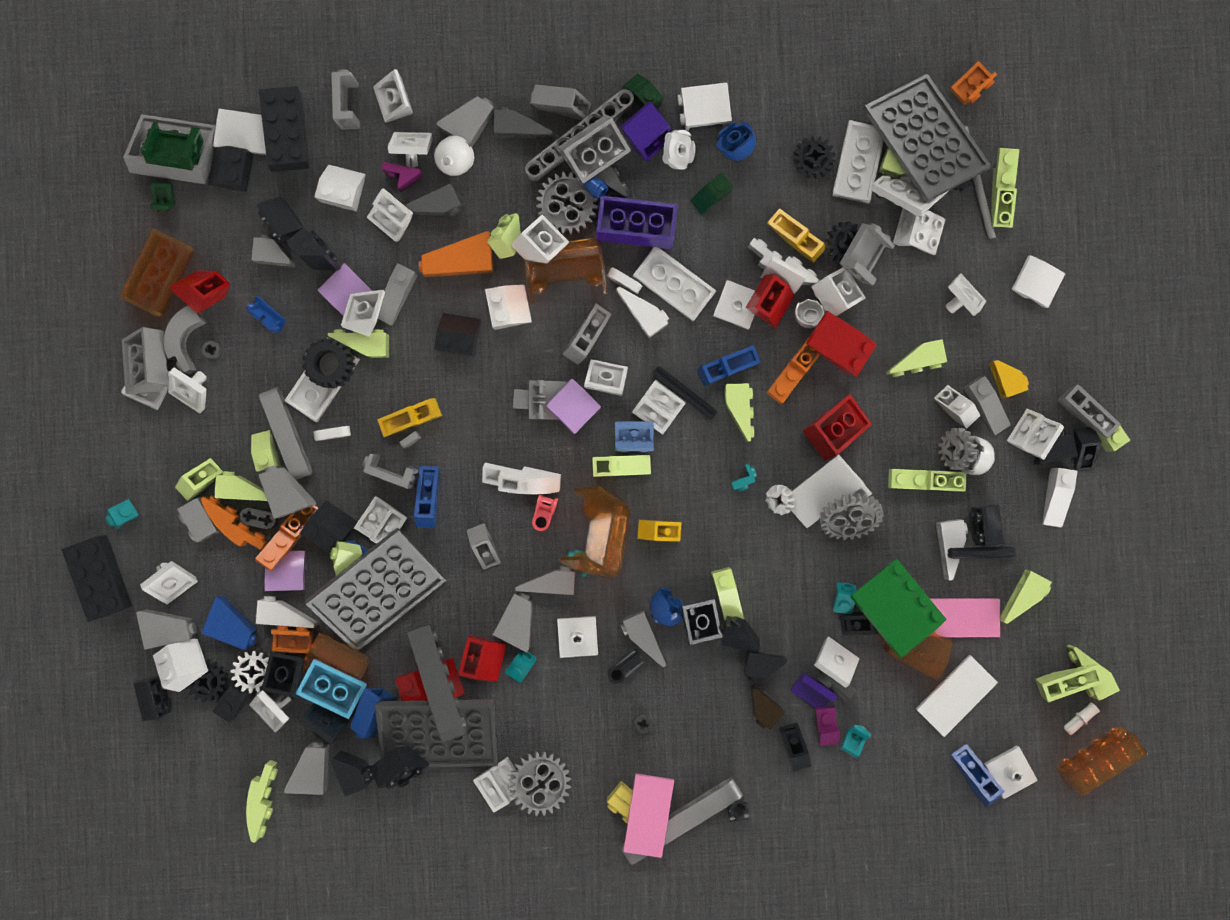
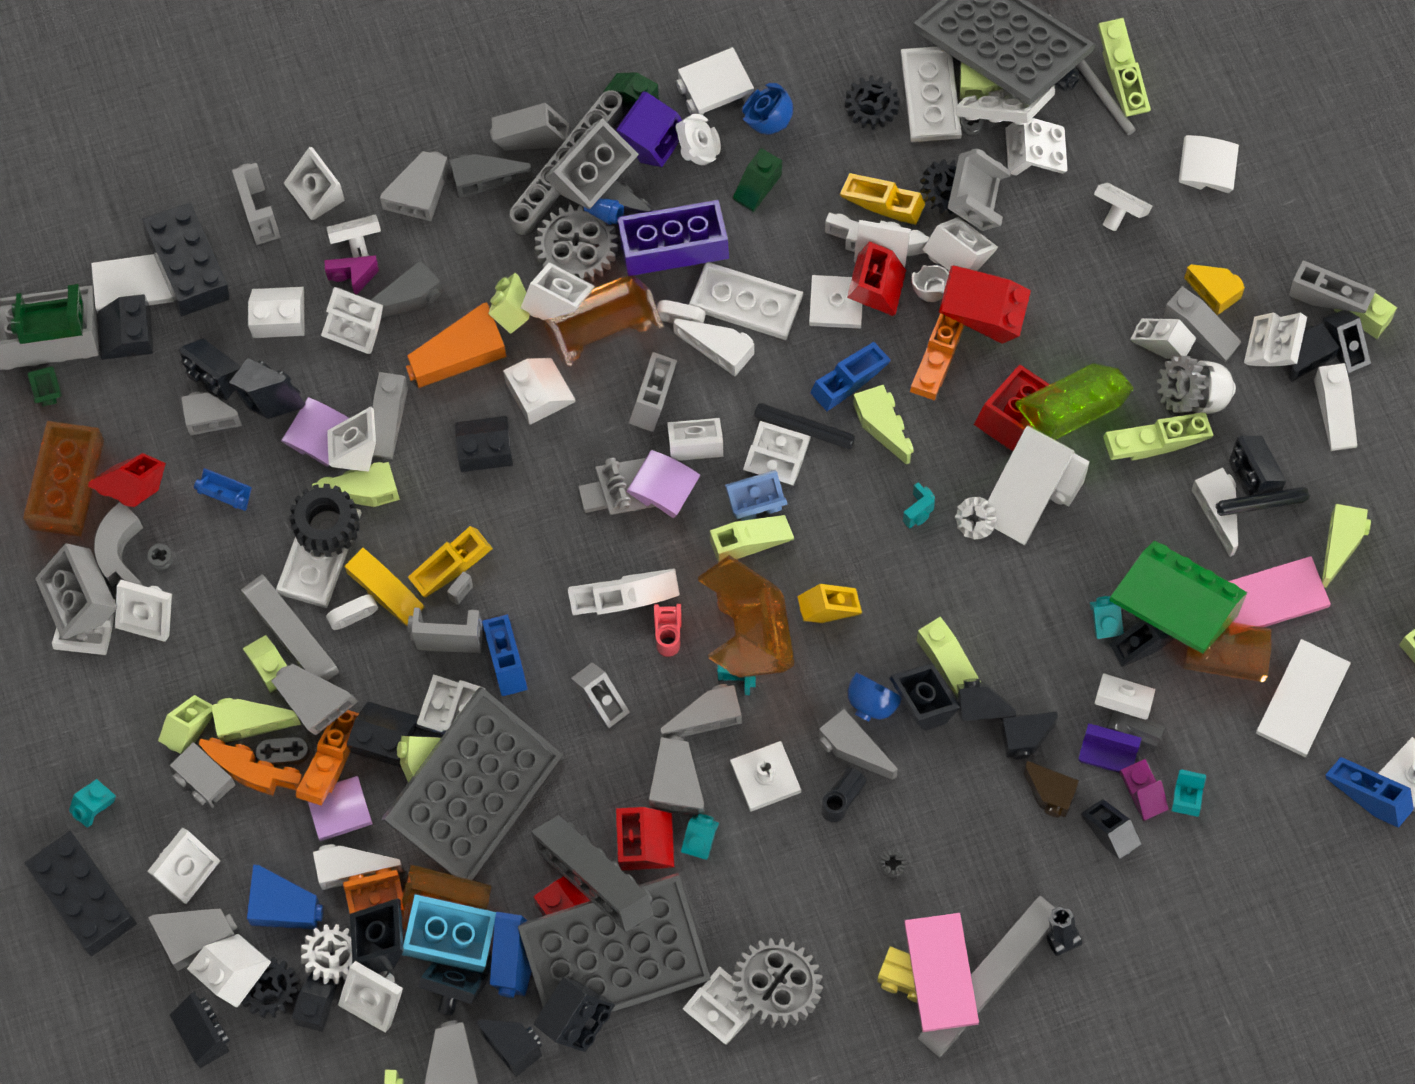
camera: 15 degrees left, 20 degrees down
(358, 422) = (383, 585): none -> yellow slope
(454, 156) = (414, 228): white cylinder -> none
(851, 516) = (1090, 484): light grey gear -> none
(878, 436) = (1075, 400): none -> clear neon green slope
(924, 355) = (1097, 291): yellowish green slope -> none

